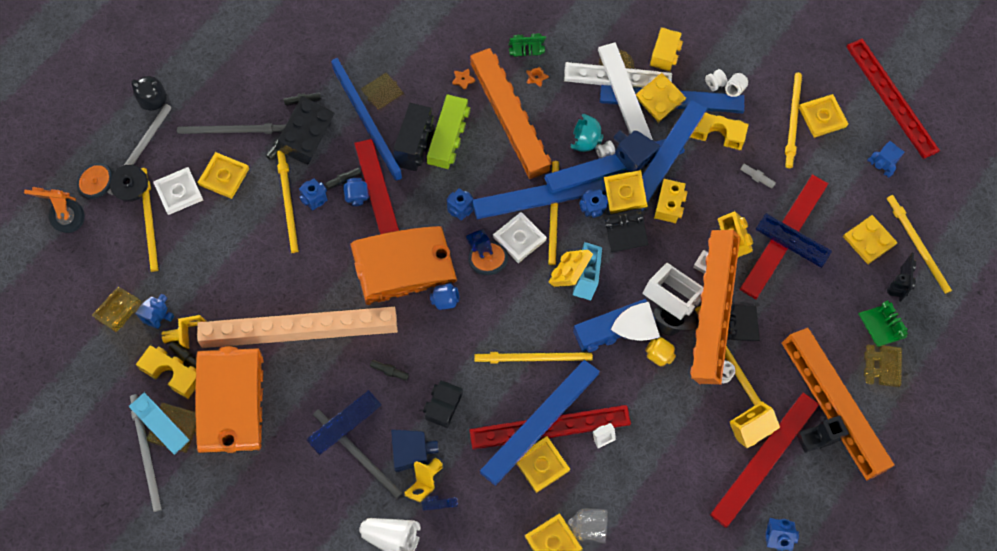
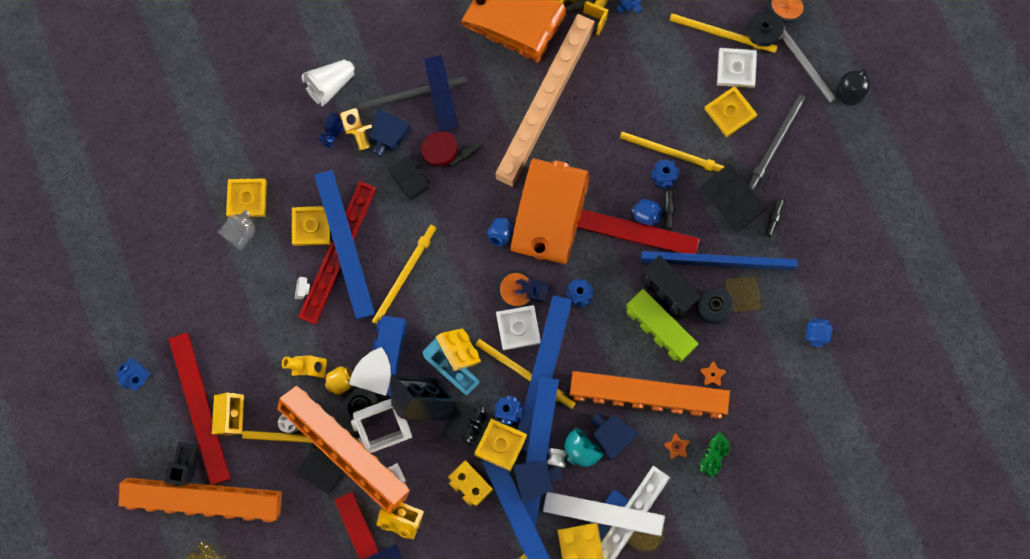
camera: 130 degrees right, 10 degrees up
(381, 22) = (819, 332): none -> blue head
(399, 394) = (439, 148): none -> dark red tile
(401, 98) = (710, 311): none -> black wheel
(560, 120) = (613, 434): none -> dark blue torso
(632, 269) = (420, 398): none -> black slope
(668, 388) = (304, 365): none -> yellow bracket

